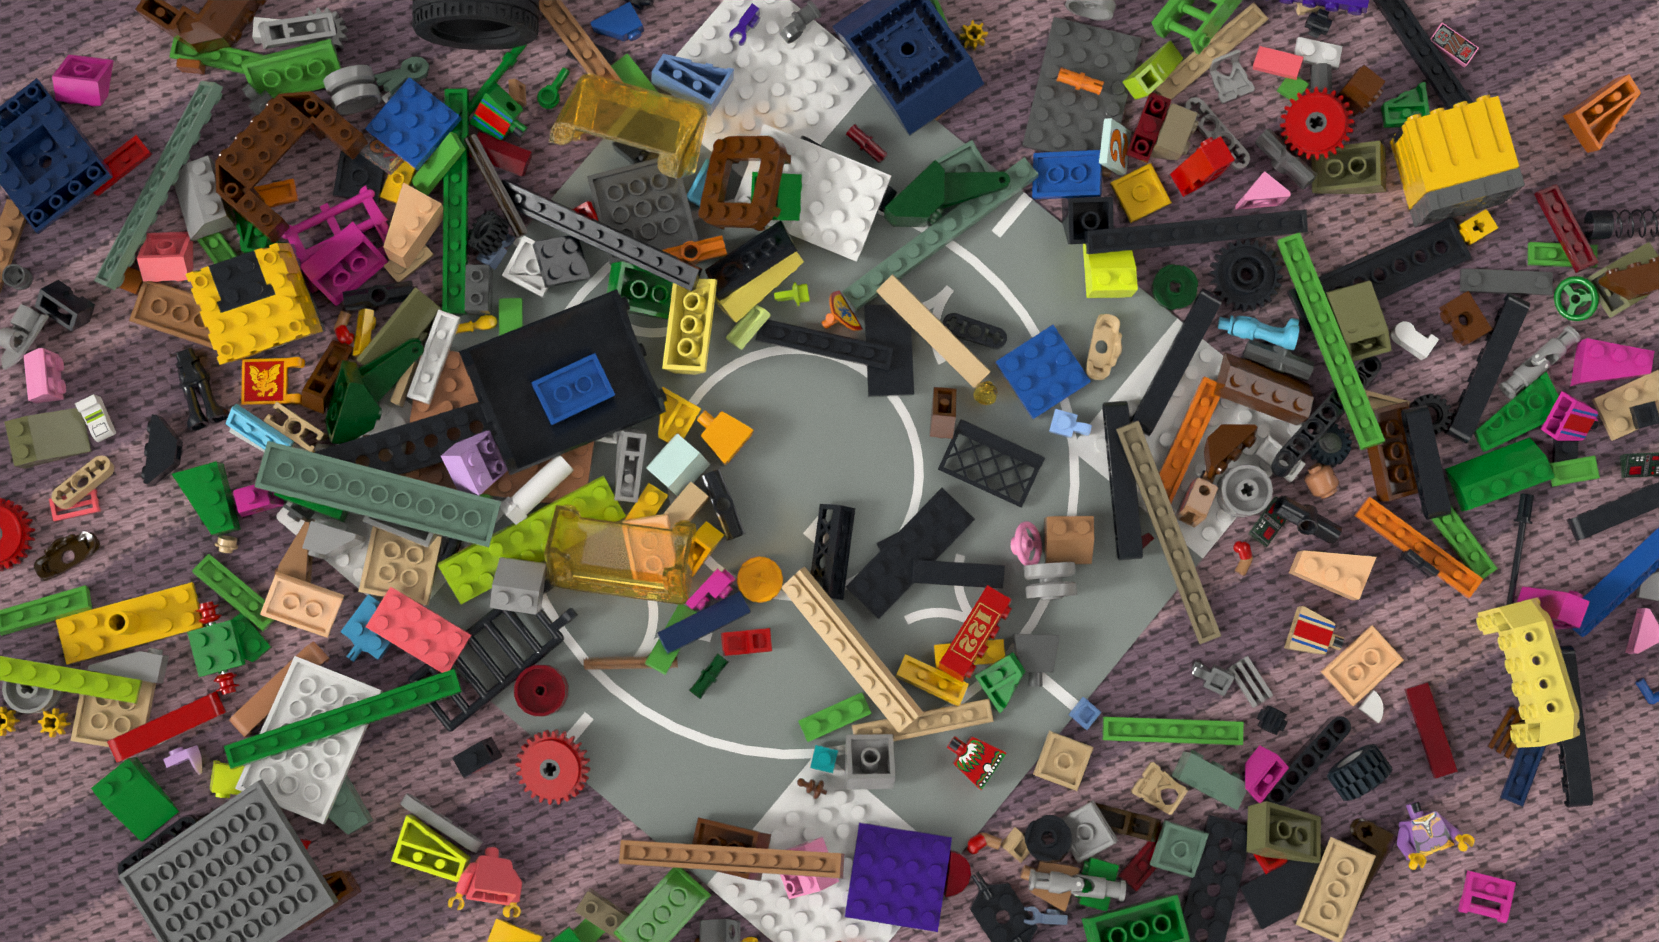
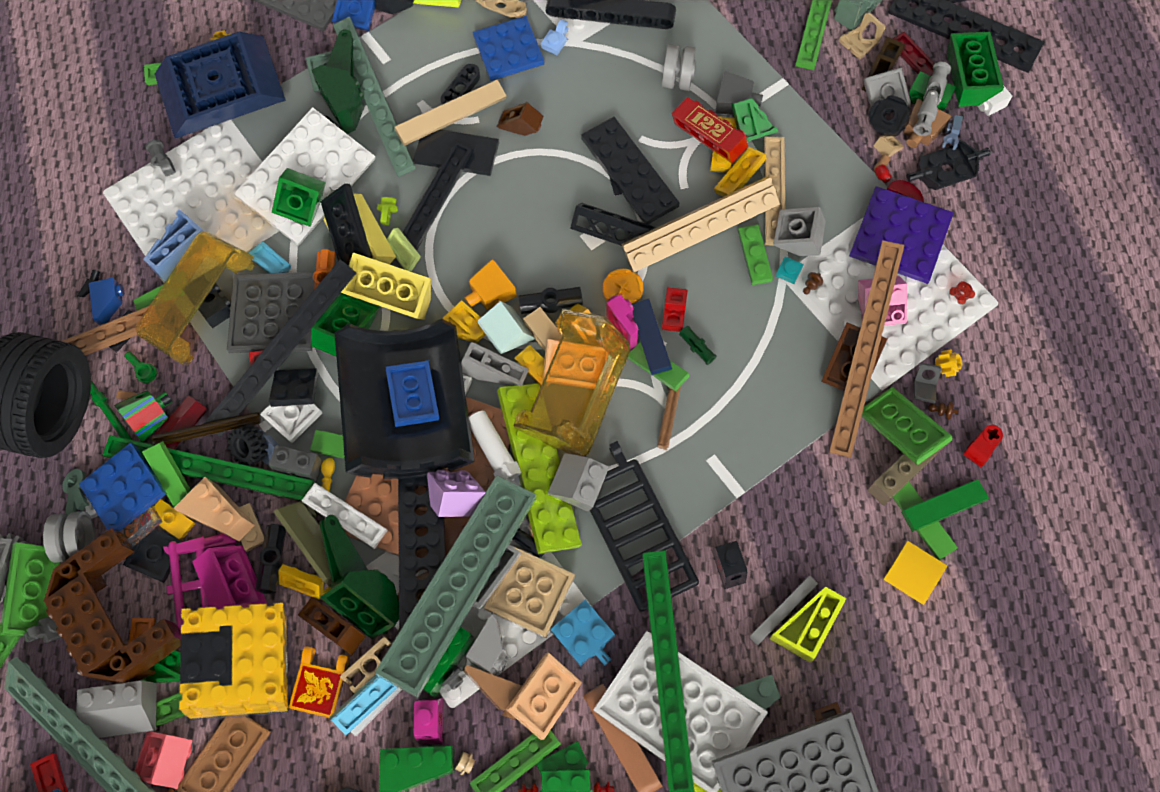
camera: 65 degrees left, 15 degrees down
(191, 377) = (290, 758): black piece -> none
(341, 329) = (292, 603): red arm -> none
(403, 385) = (366, 554): tan tile -> none
(418, 630) = (597, 586): coral plate -> none
(490, 881) = (849, 572): coral torso -> none
(555, 692) = (692, 483): dark red wheel -> none
(564, 755) = (742, 506): gear -> none
(749, 20) = (144, 194): dark purple plate -> none
(762, 209) = (304, 222): reddish brown plate -> none
(841, 312) = (413, 173): shield -> none
(866, 143) = (279, 132): dark red axle -> none
(957, 573) = (655, 136): black tile -> none
(976, 759) = (814, 154): torso -> none
(985, 393) = (513, 87): clear yellow tile -> none
(1001, 445) = (559, 83): black fence -> none
(1022, 544) = (644, 84): bright pink piece -> none
(1063, 760) = (825, 98): tan tile -> none
(1069, 539) = (646, 54): medium nougat slope -> none
(1084, 713) = (790, 76): medium blue tile -> none
(1179, 849) = (912, 32): sand green tile -> none

